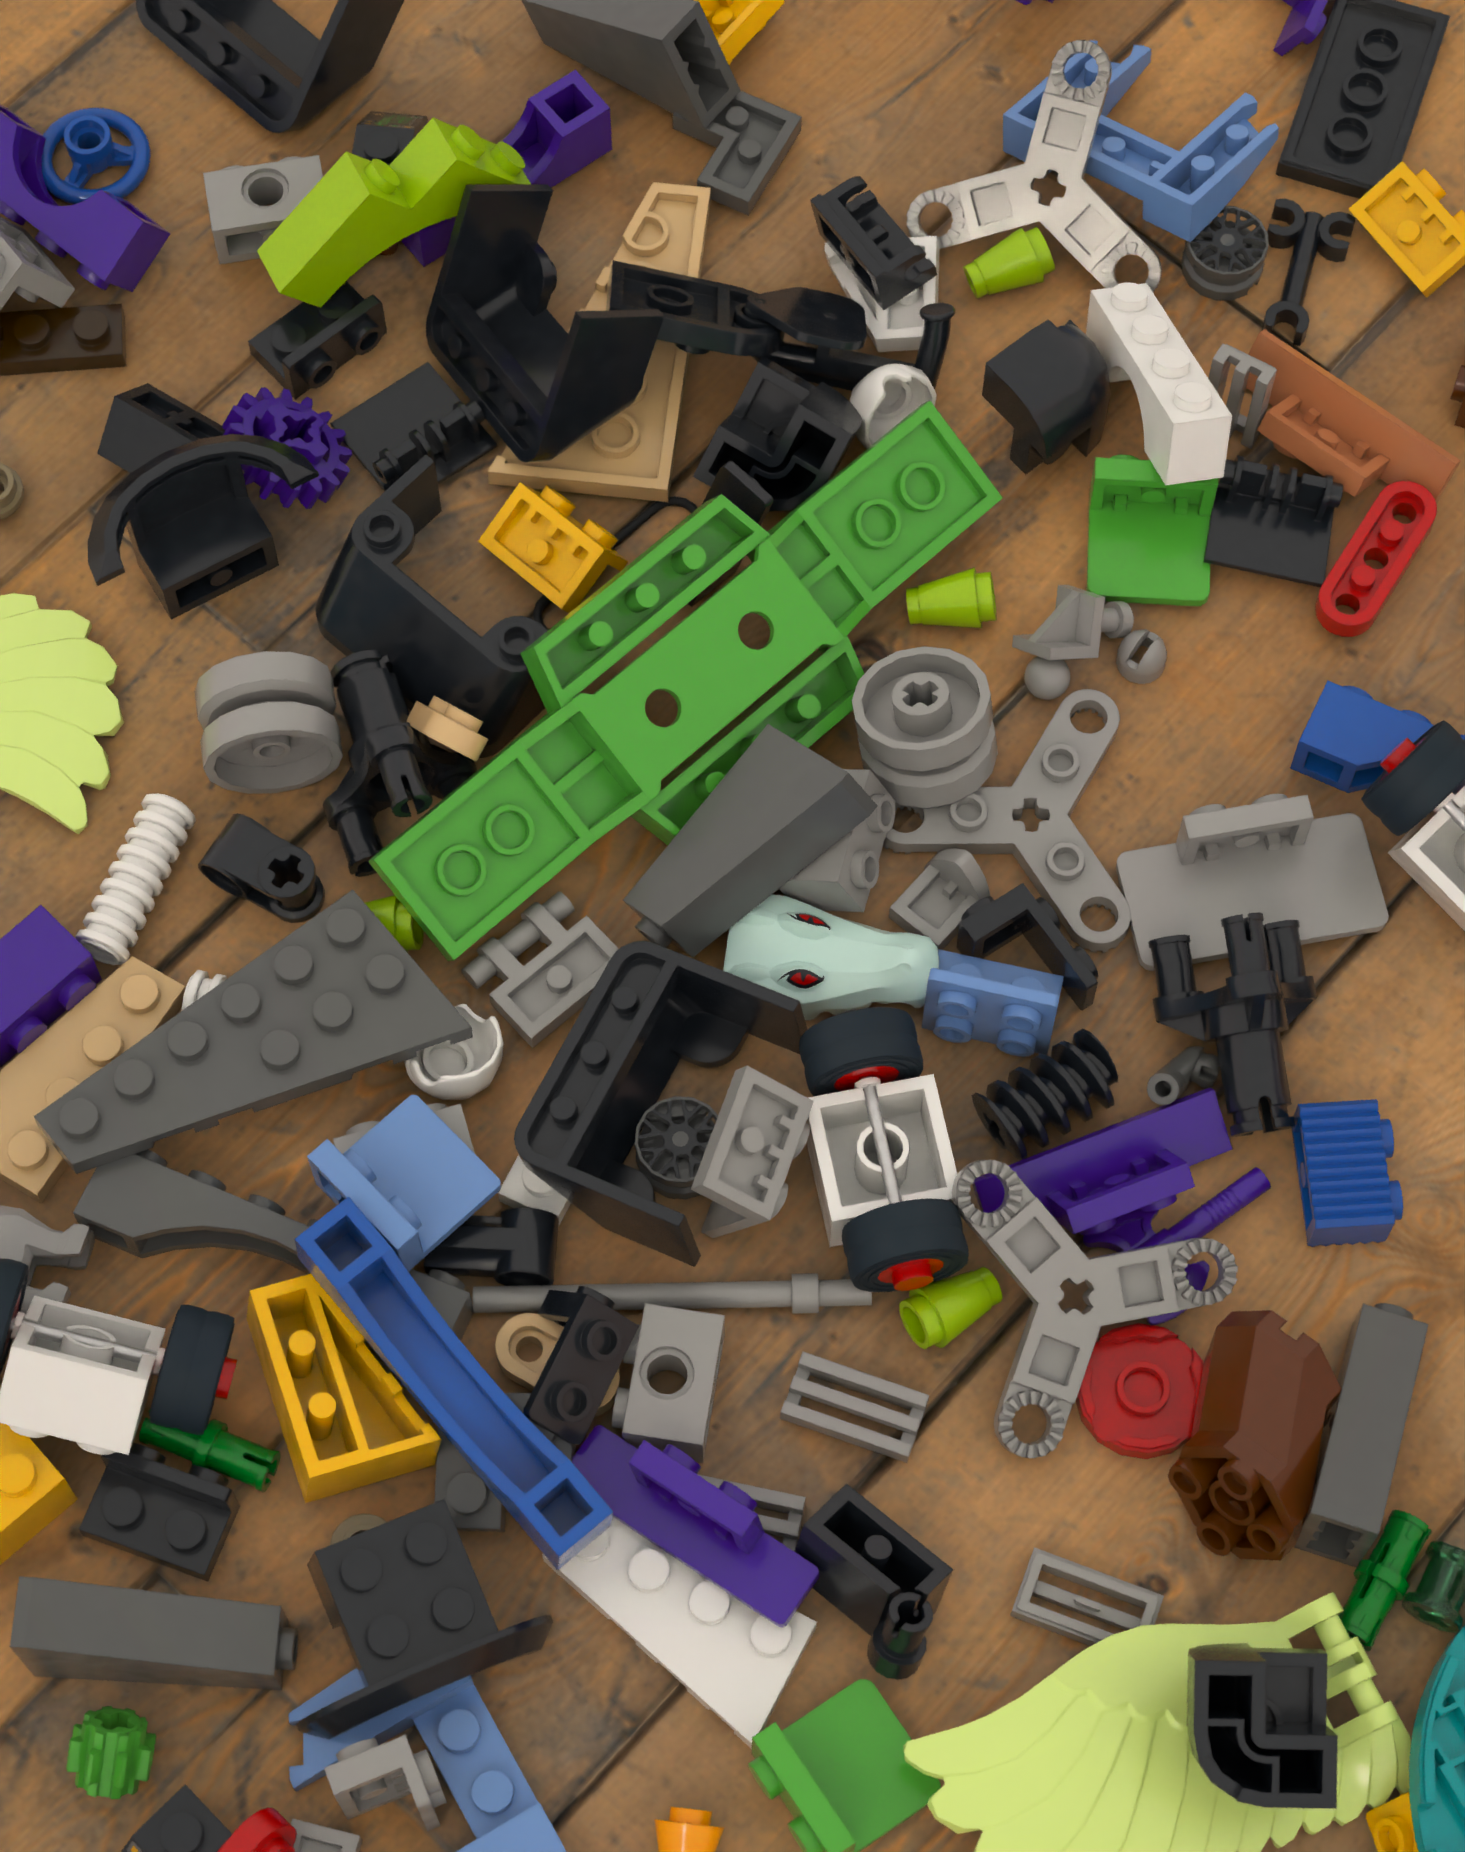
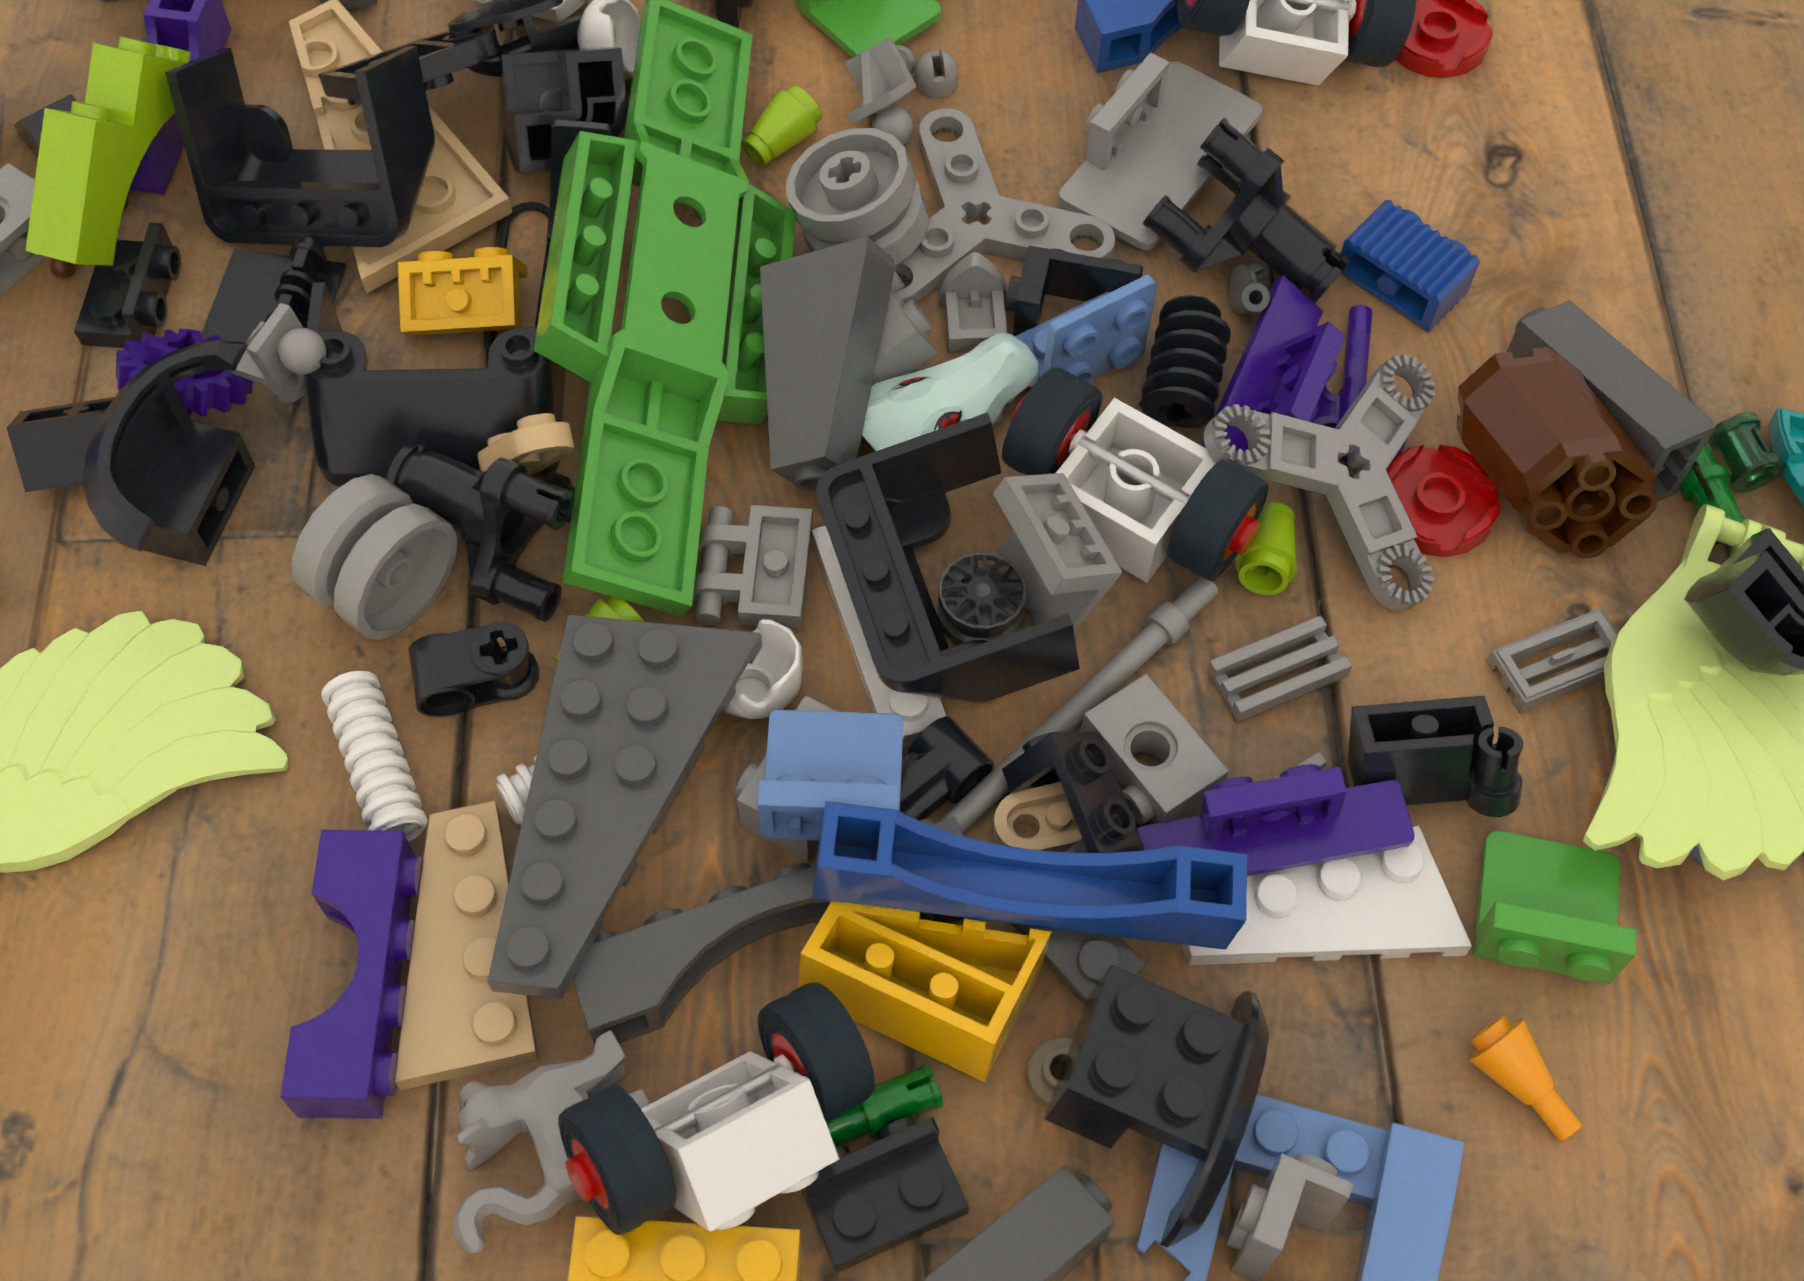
camera: 45 degrees left, 5 degrees down
(352, 493) = (281, 354): none -> light grey piece

